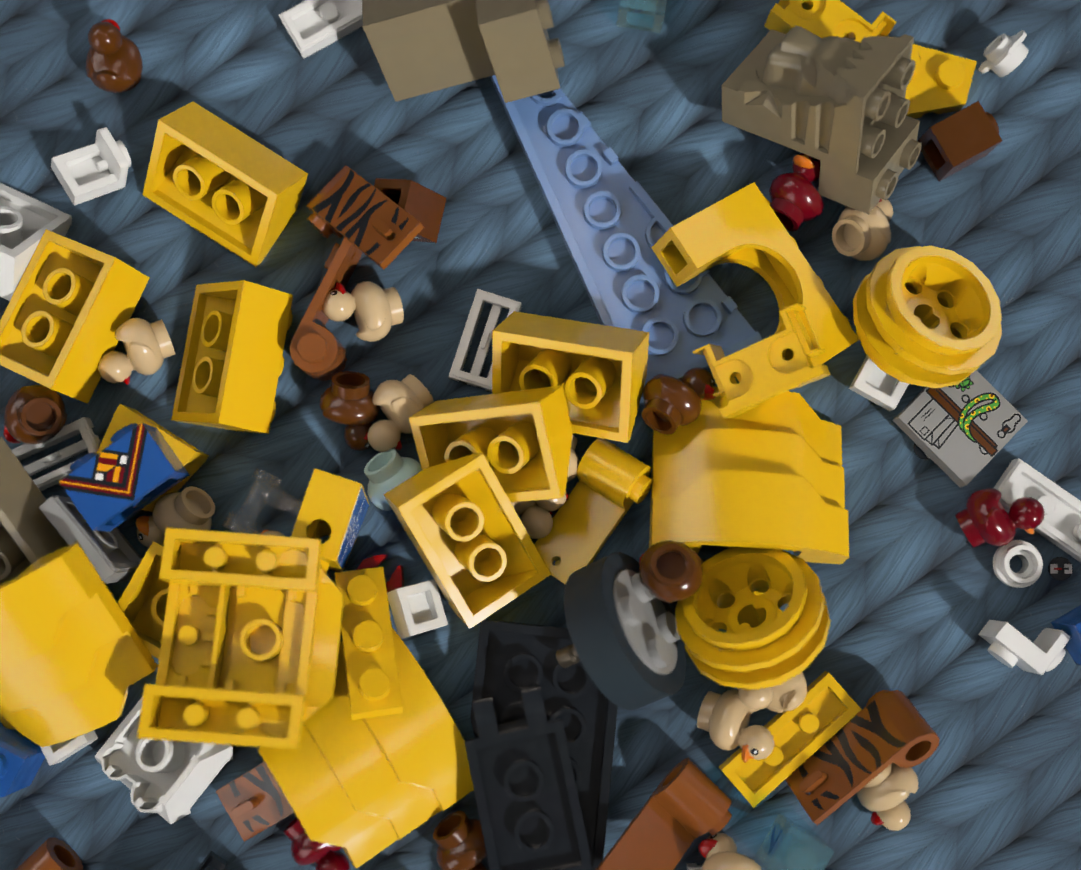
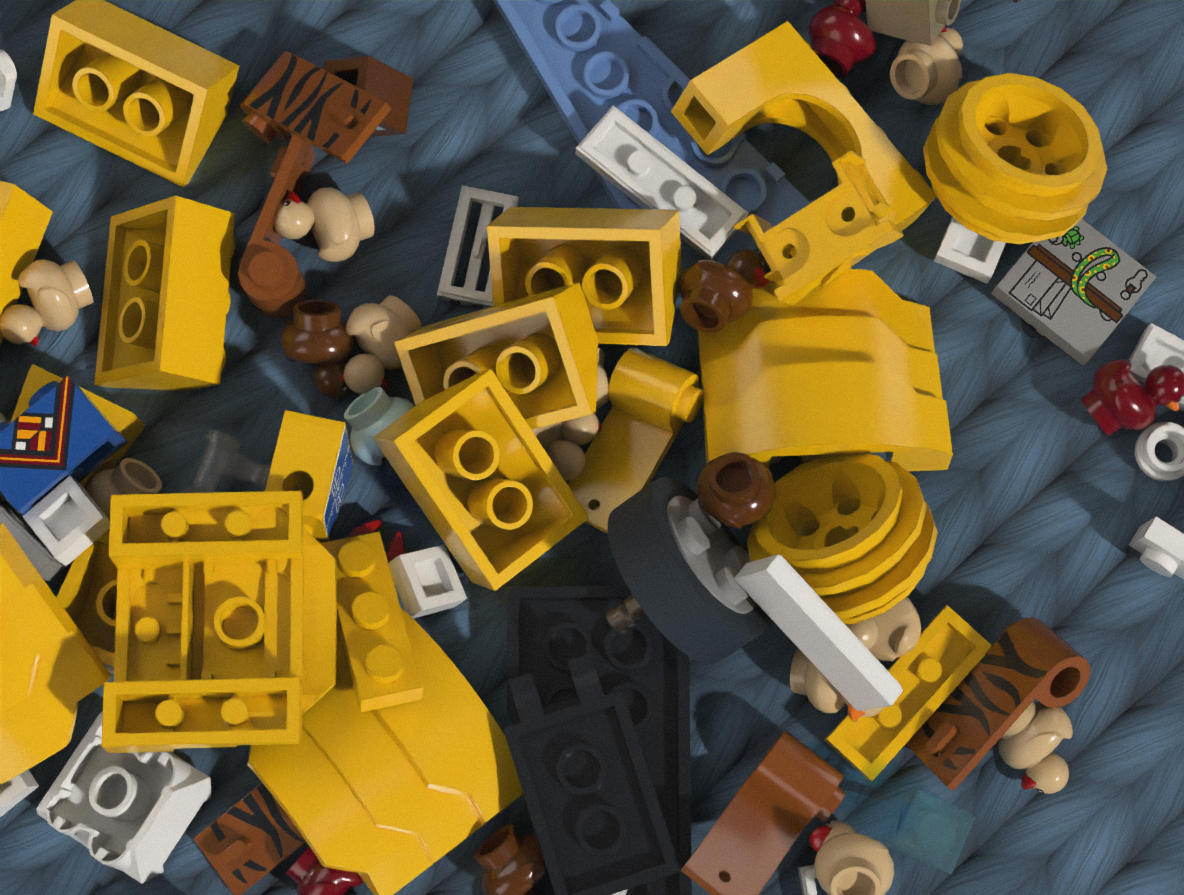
camera: 10 degrees left, 5 degrees down
(132, 539) = (67, 521): none -> white plate
(637, 304) = (661, 181): none -> white tile
(726, 698) = (819, 633): none -> white tile

